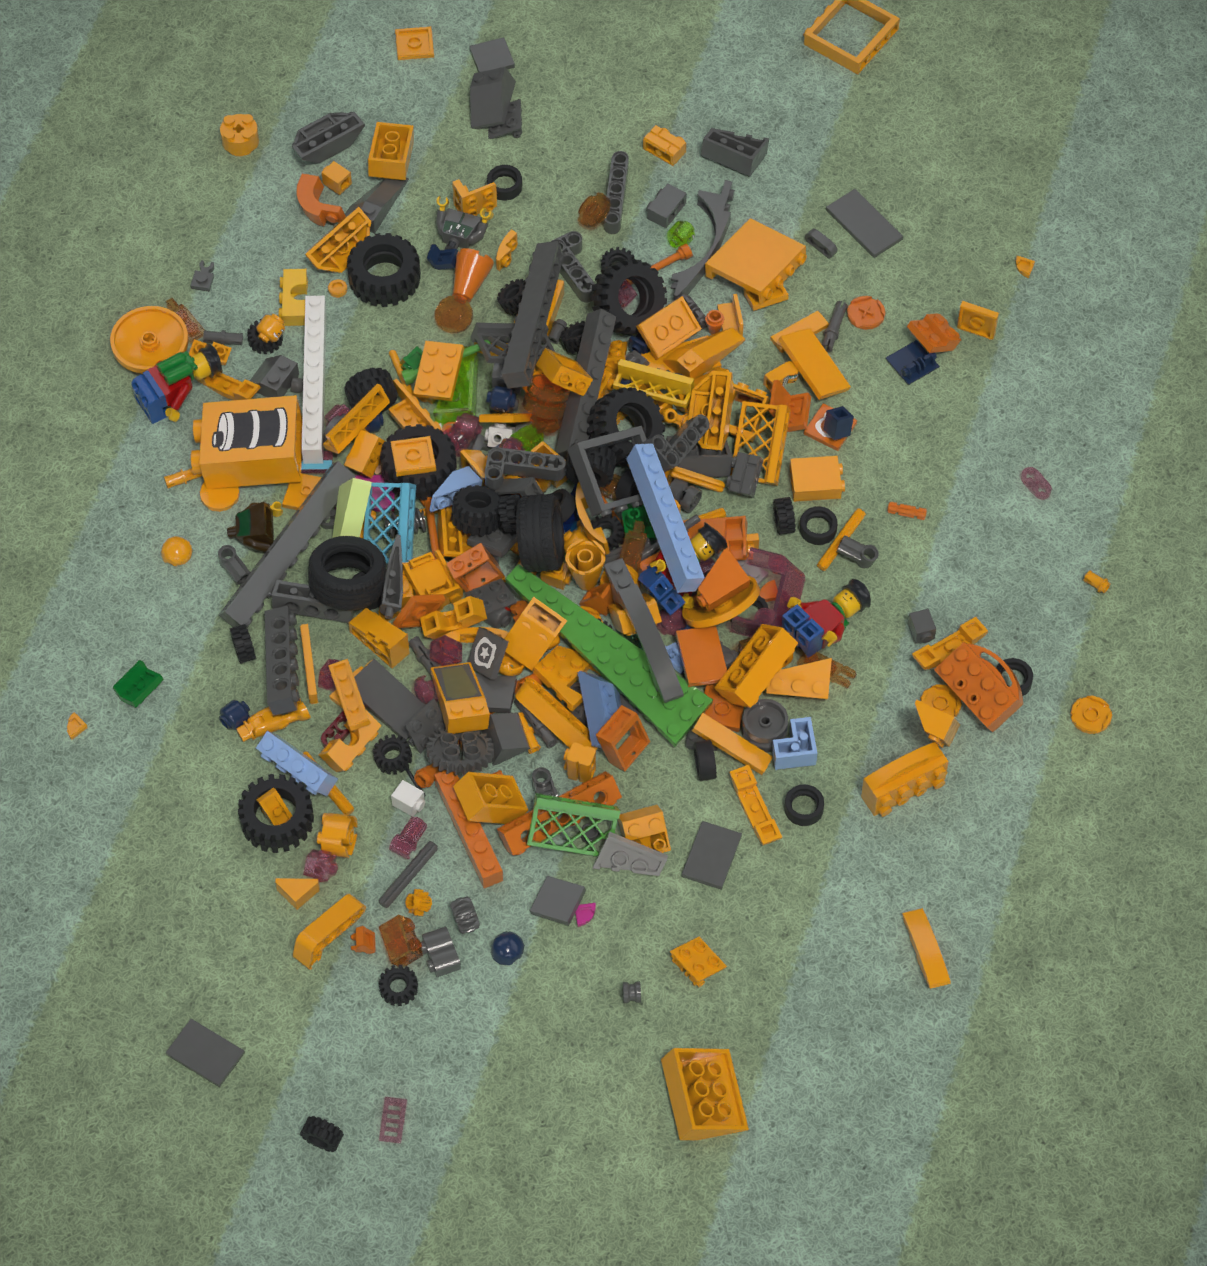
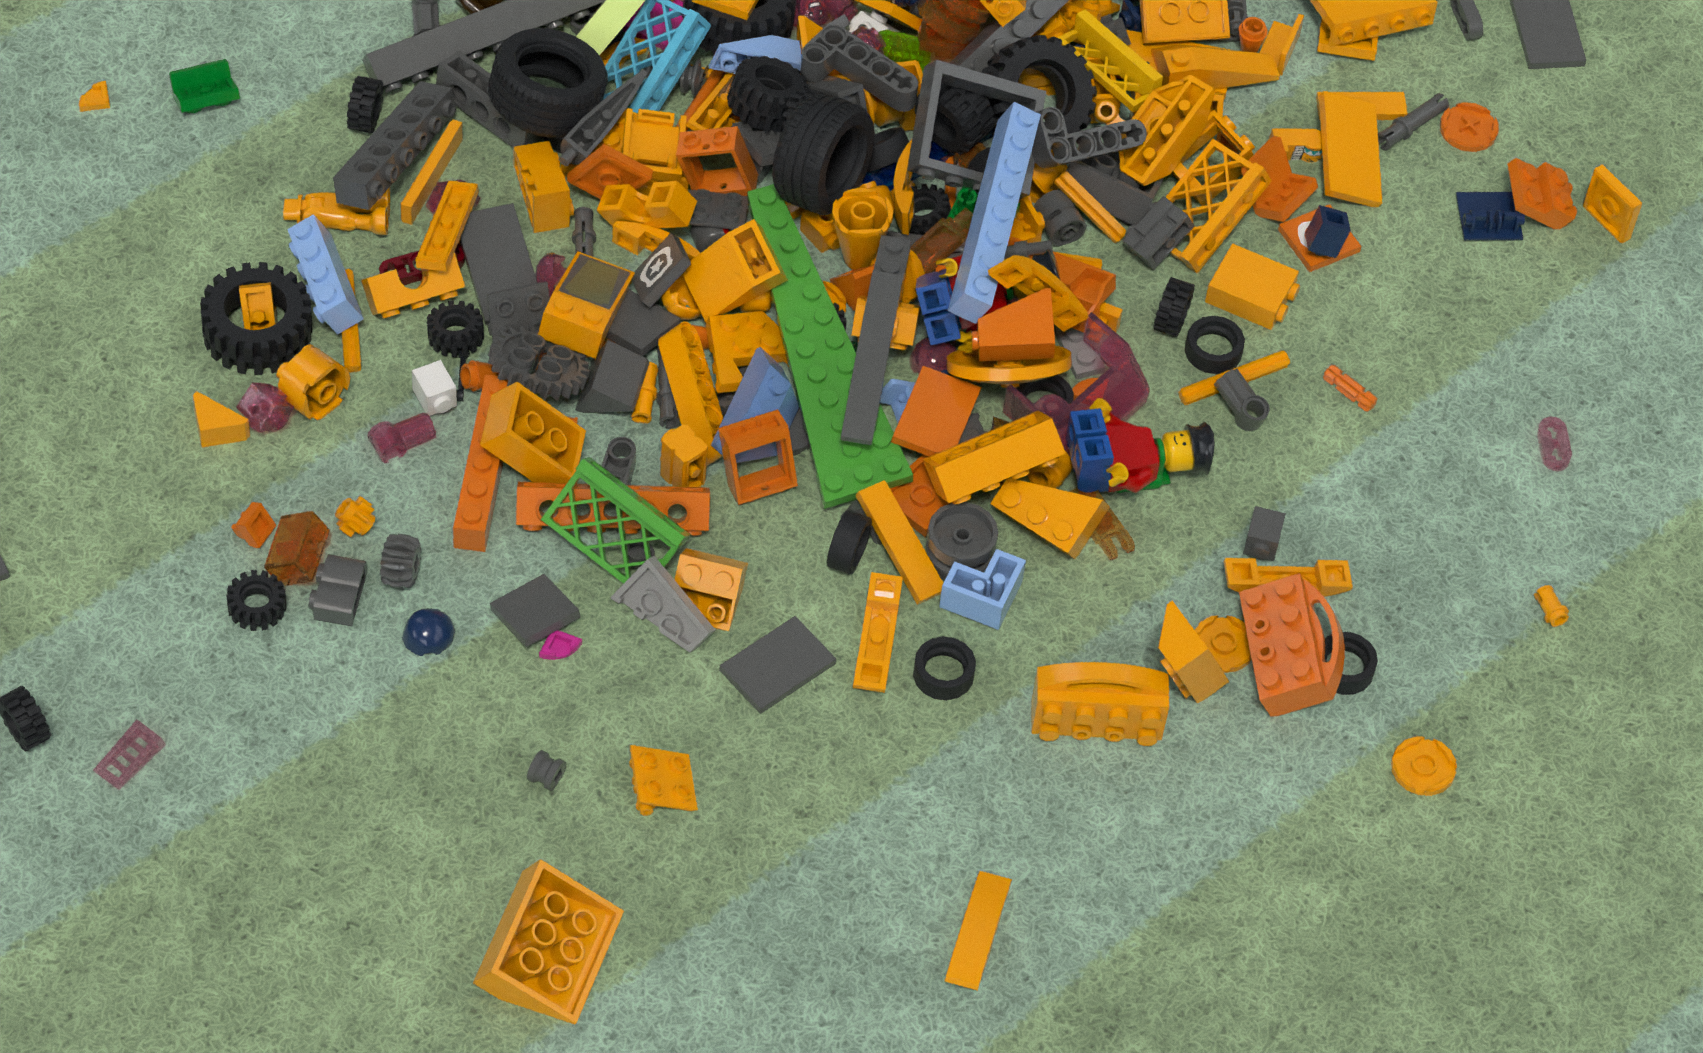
camera: 25 degrees right, 5 degrees down
(234, 714) = (295, 180): dark blue head -> none
(326, 928) = (215, 482): light orange beam -> none
(408, 874) = (369, 479): dark grey axle -> none
(446, 651) = (613, 242): clear pink brick -> none
(714, 547) = (1033, 277): none -> light orange slope

